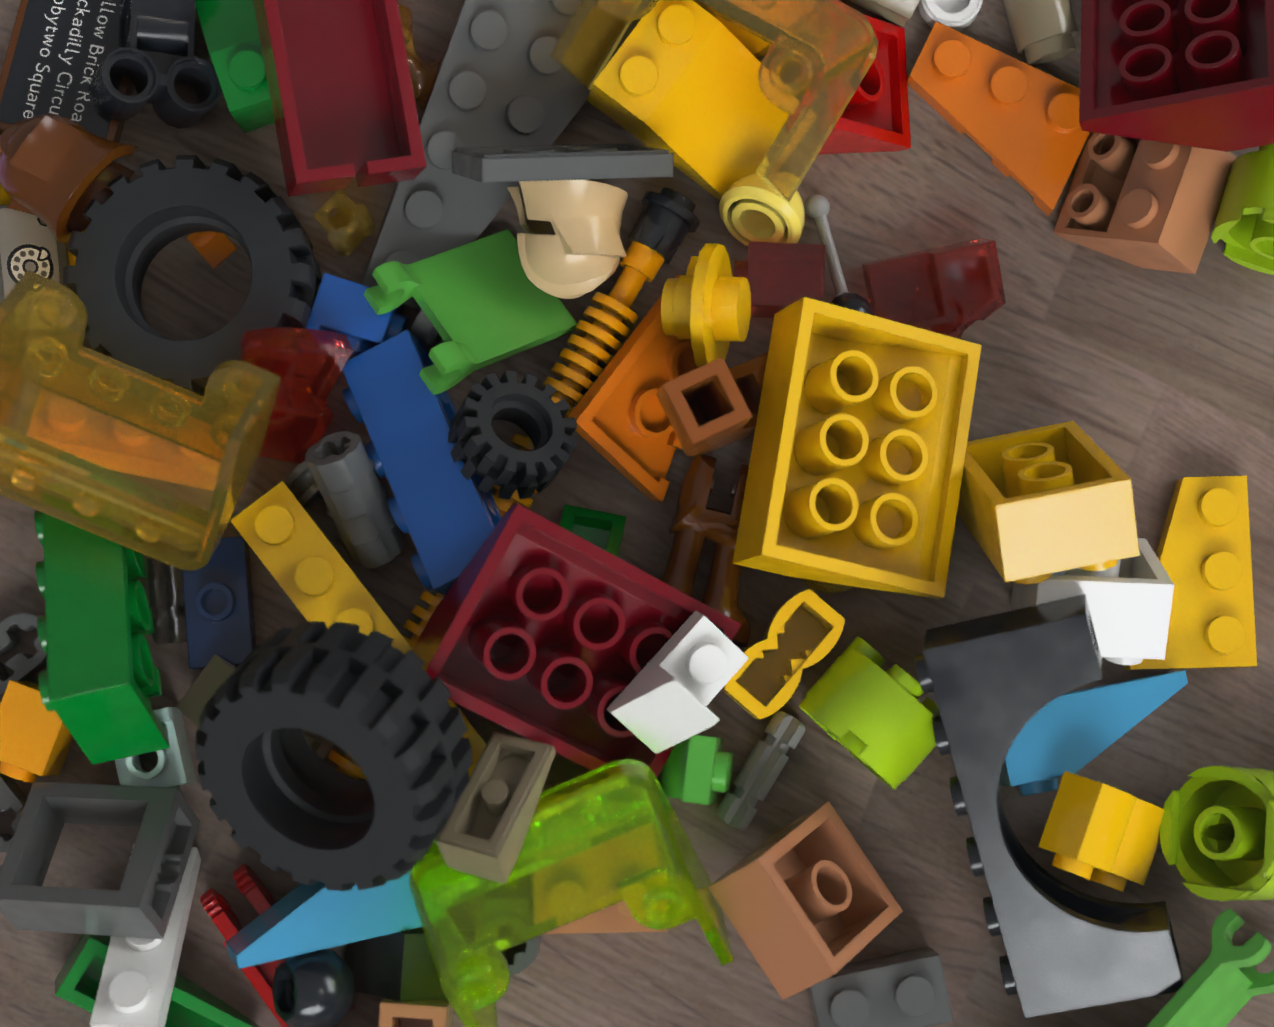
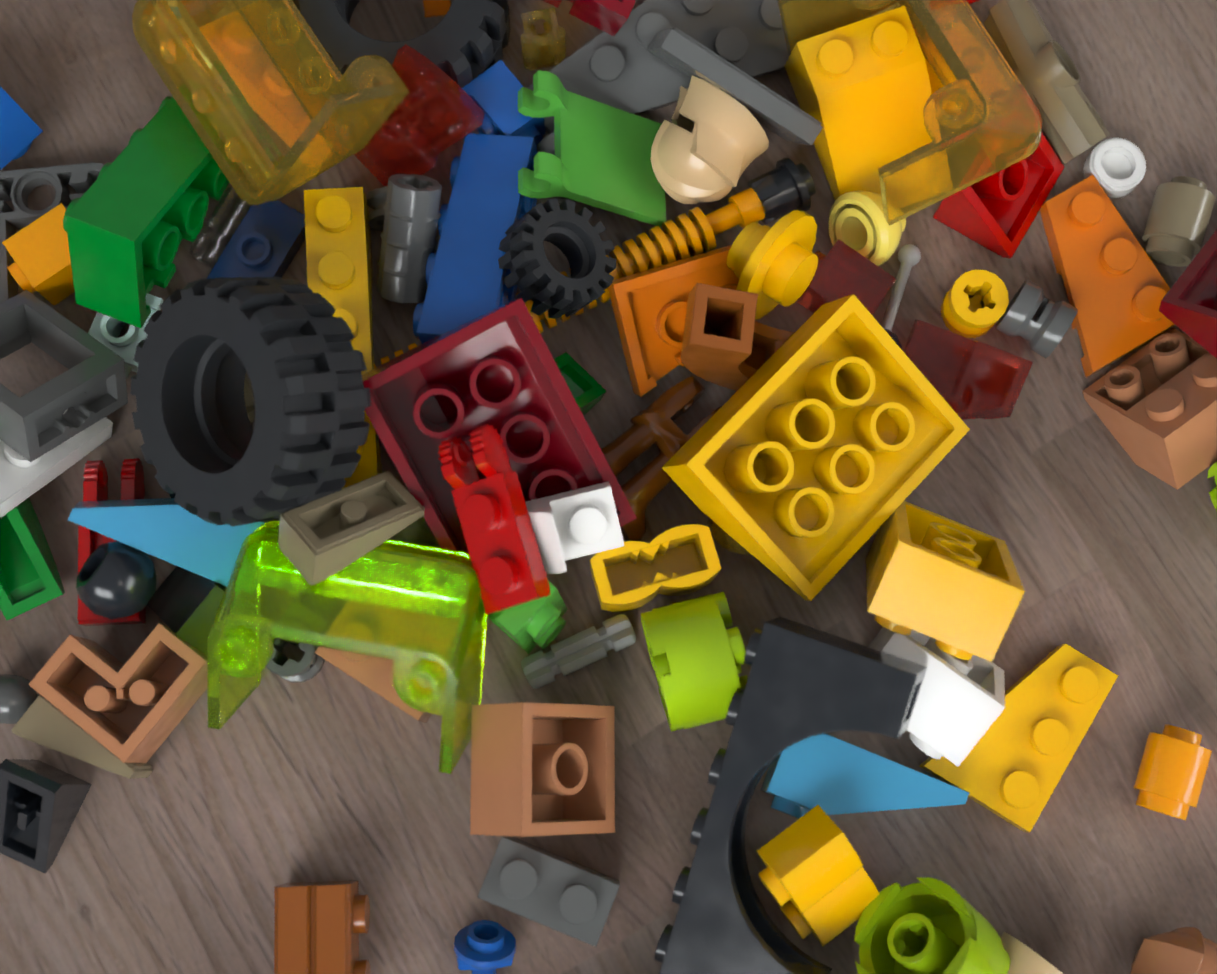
camera: 30 degrees right, 5 degrees down
(625, 717) = (494, 520): none -> red hinge
(904, 229) = (965, 314): none -> yellow wheel
(971, 194) = (1048, 326): none -> dark grey wheel

